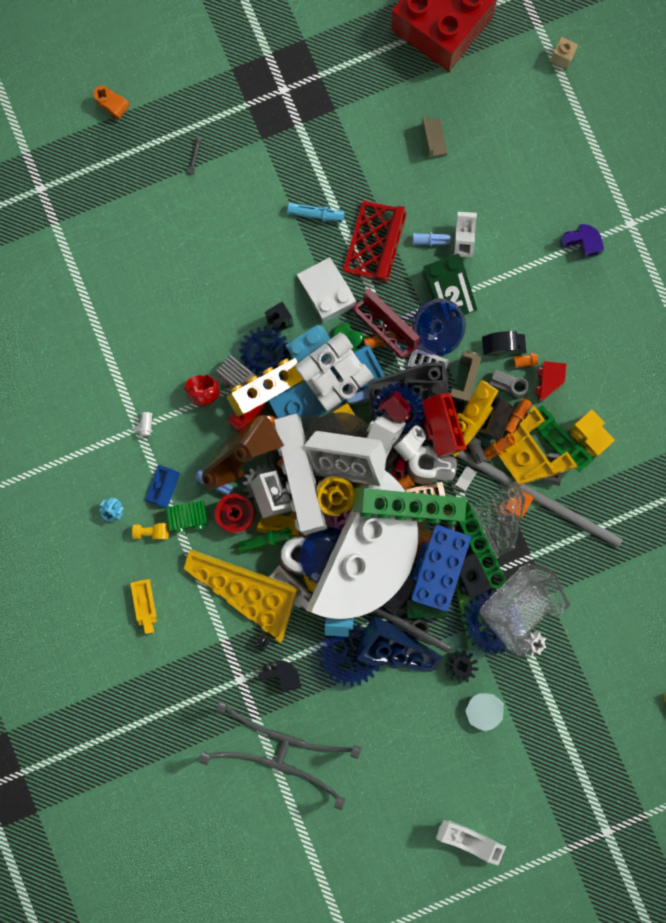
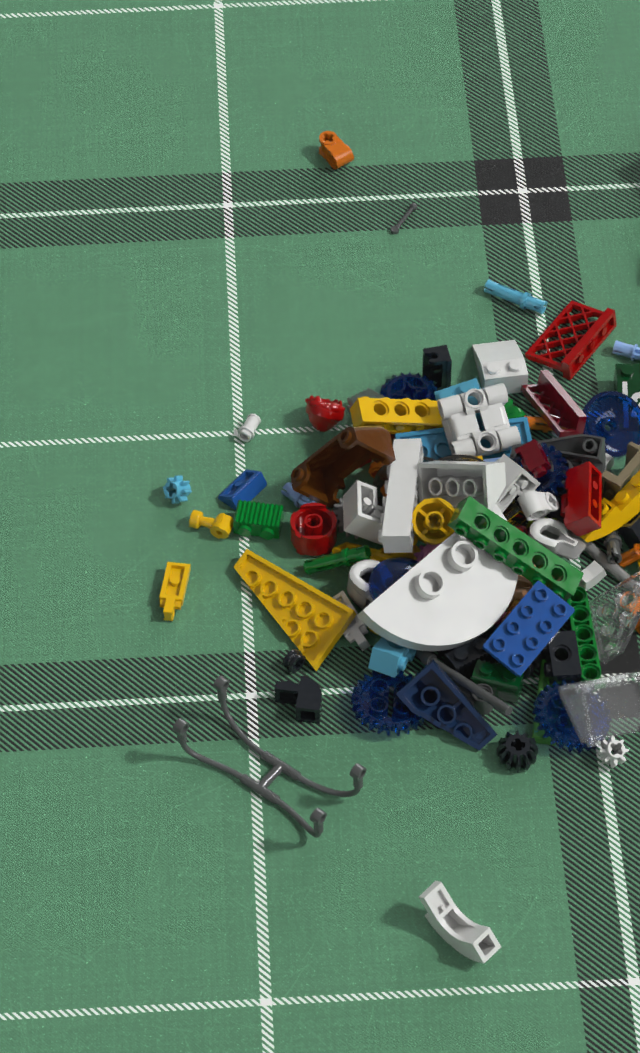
camera: 15 degrees right, 30 degrees down
(485, 711) = (529, 803): light aqua hat -> none

